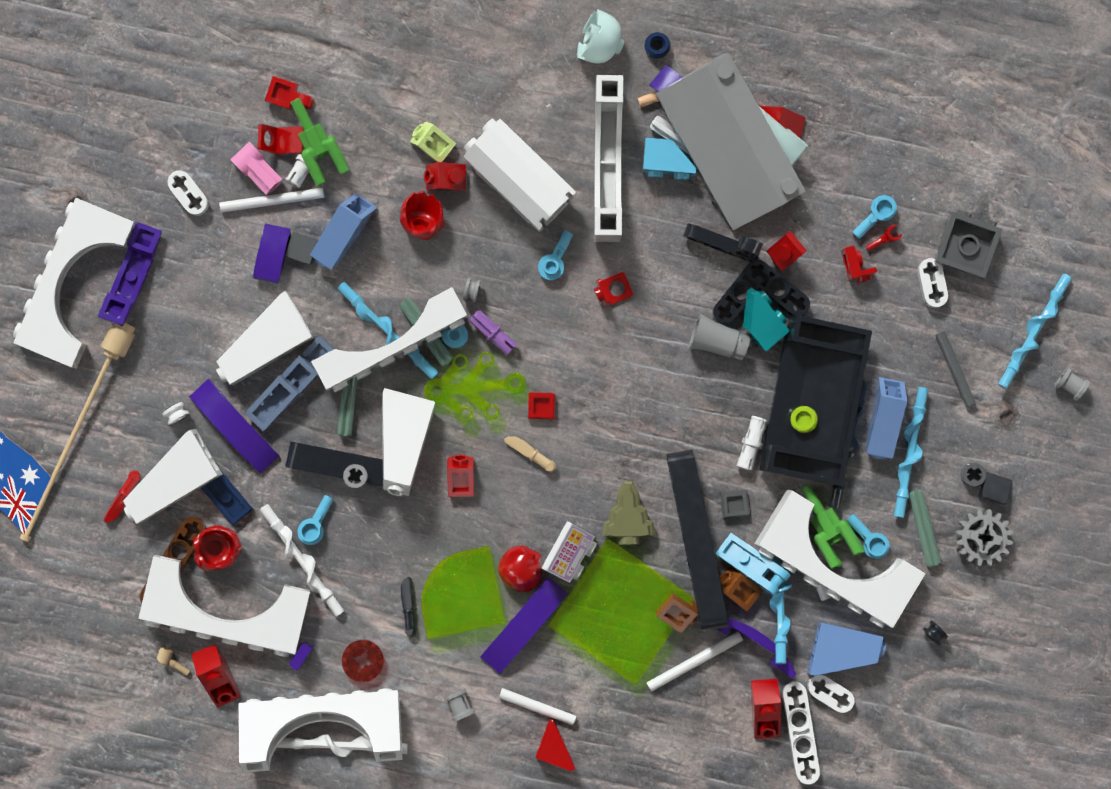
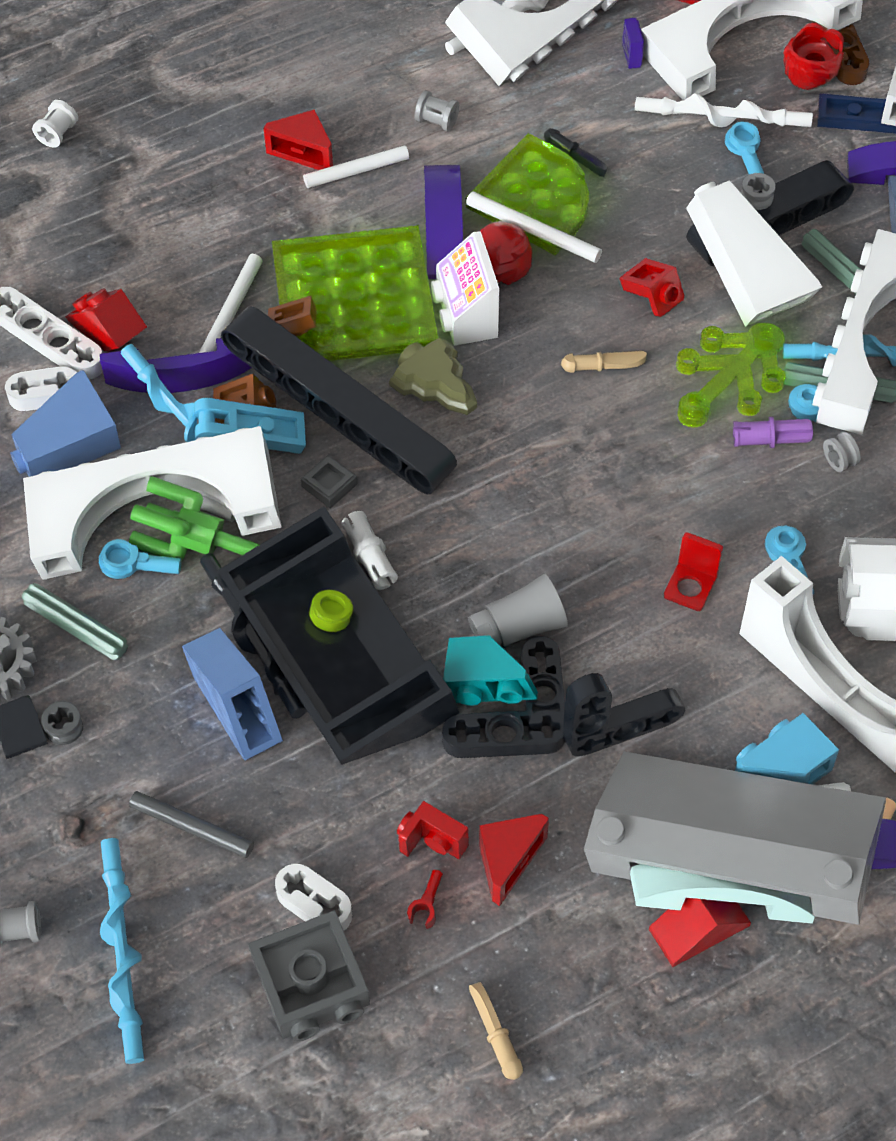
camera: 140 degrees right, 30 degrees down
(351, 666) = (575, 74): clear red gear -> none
(491, 566) = (534, 227): none -> white bar
(541, 405) = (642, 411): red tile -> none
(786, 251) = (536, 769): red bracket -> none
(831, 227) = (508, 850): none -> red slope
(882, 209) = (463, 932): medium azure plate -> none
(908, 151) = (497, 1036): none -> tan piece
(914, 452) = (163, 690): medium azure piece -> none

